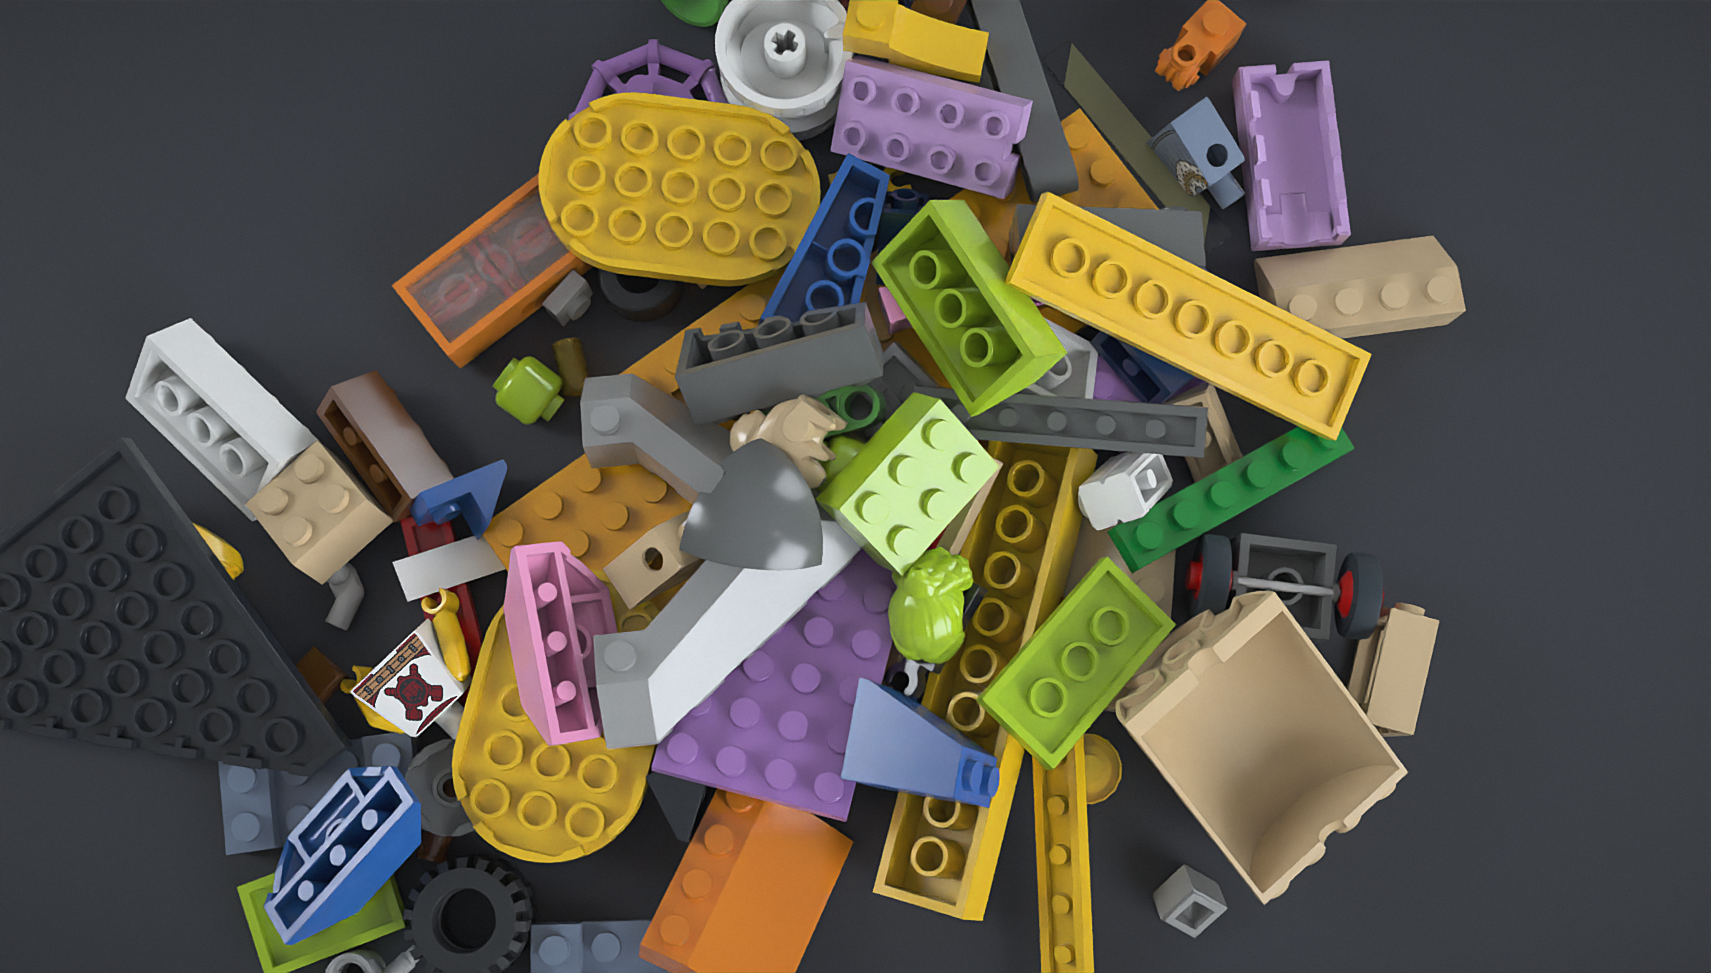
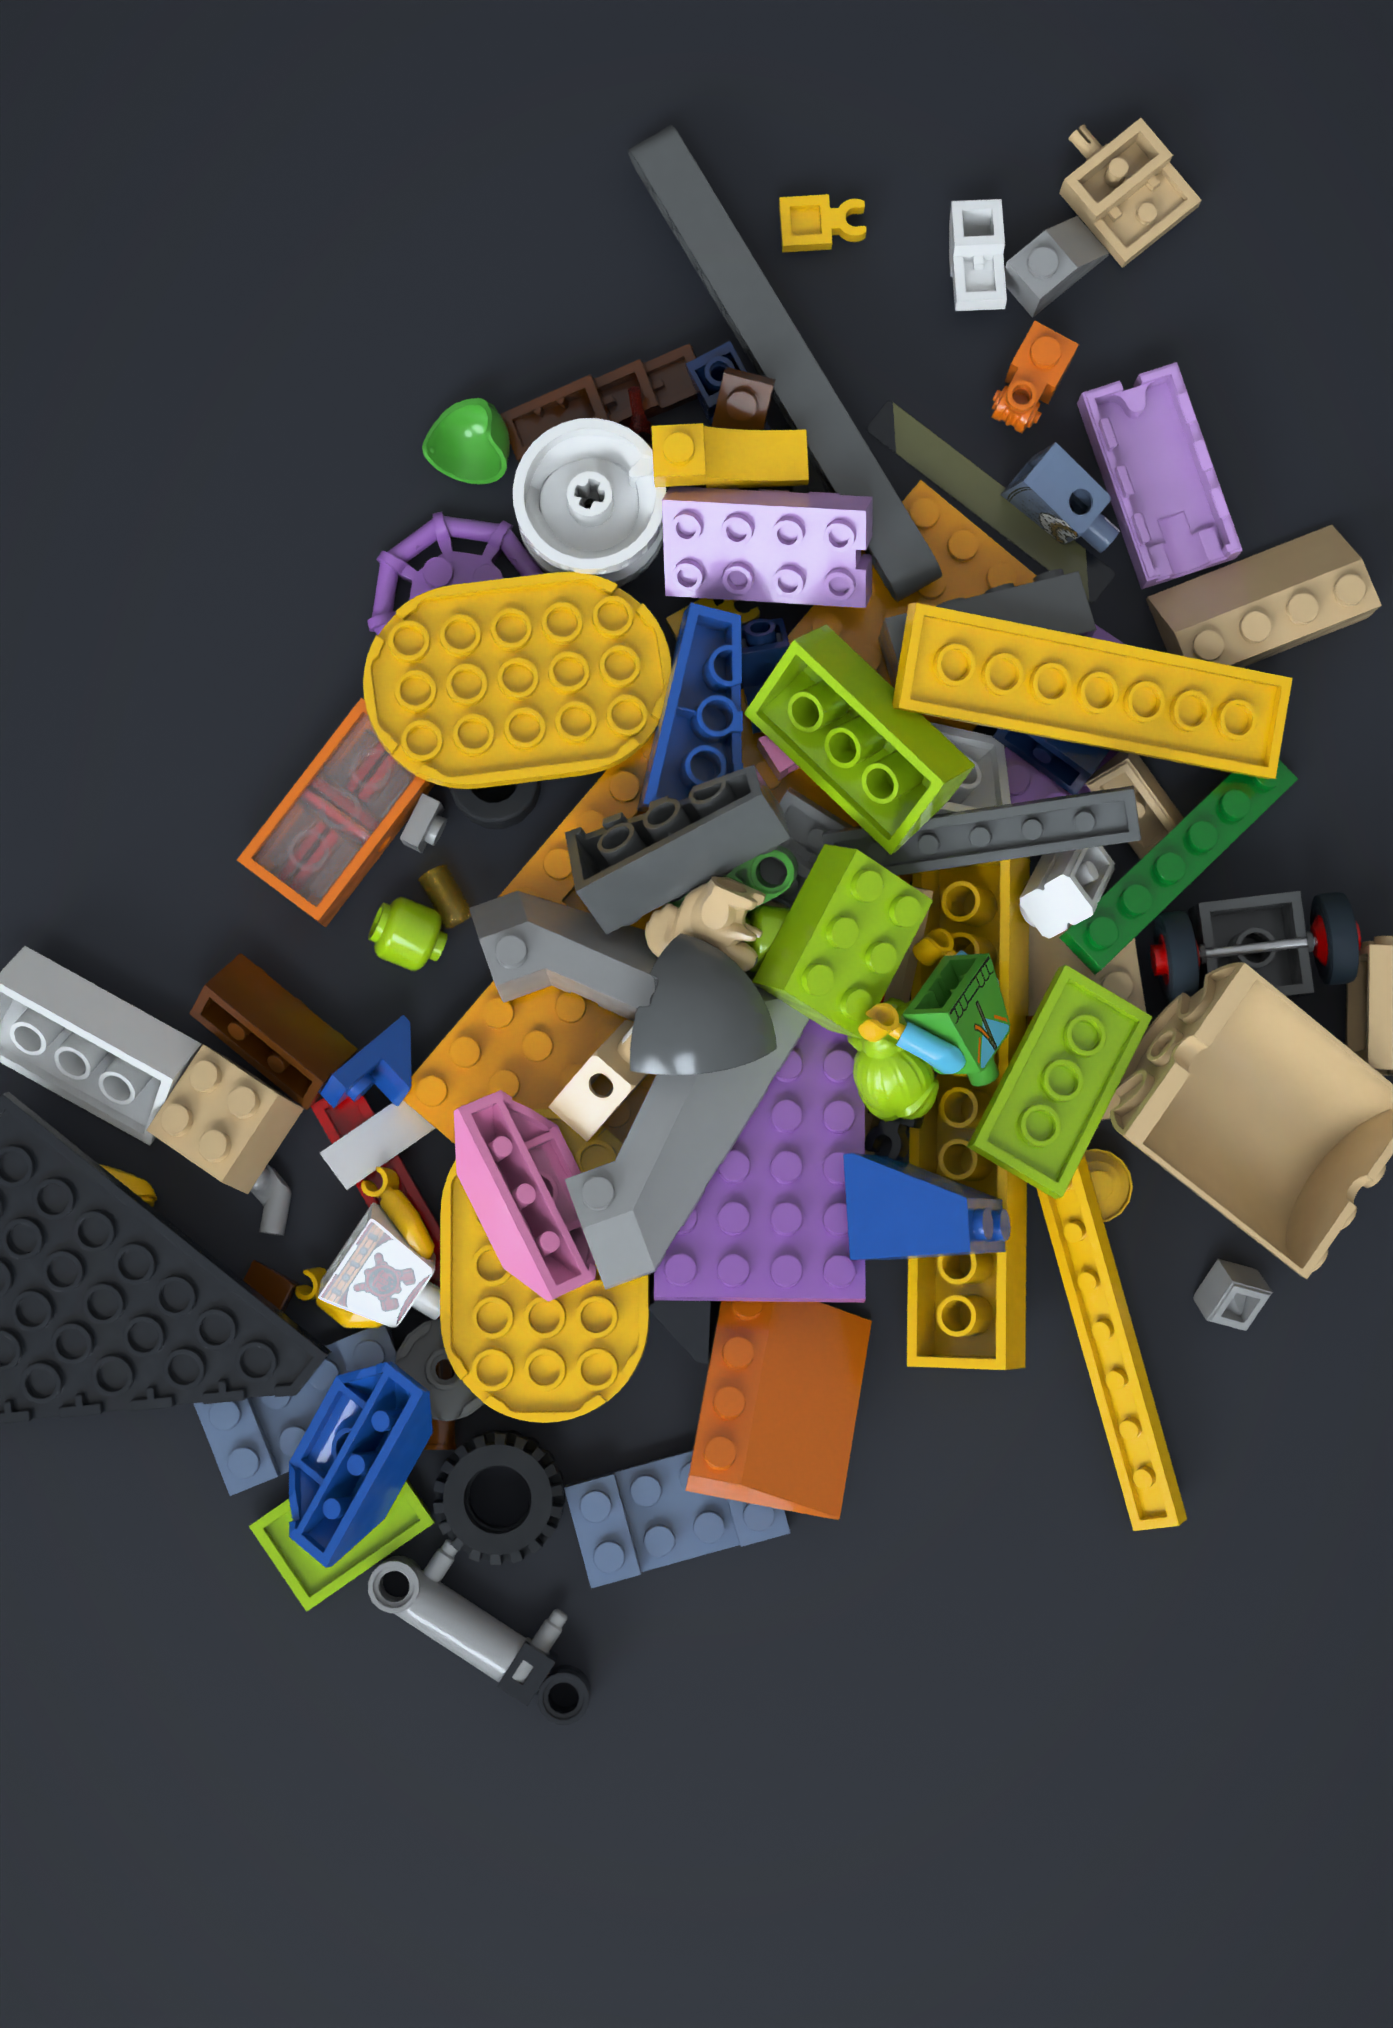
camera: 15 degrees left, 5 degrees up
(992, 577) = (954, 1017): none -> torso

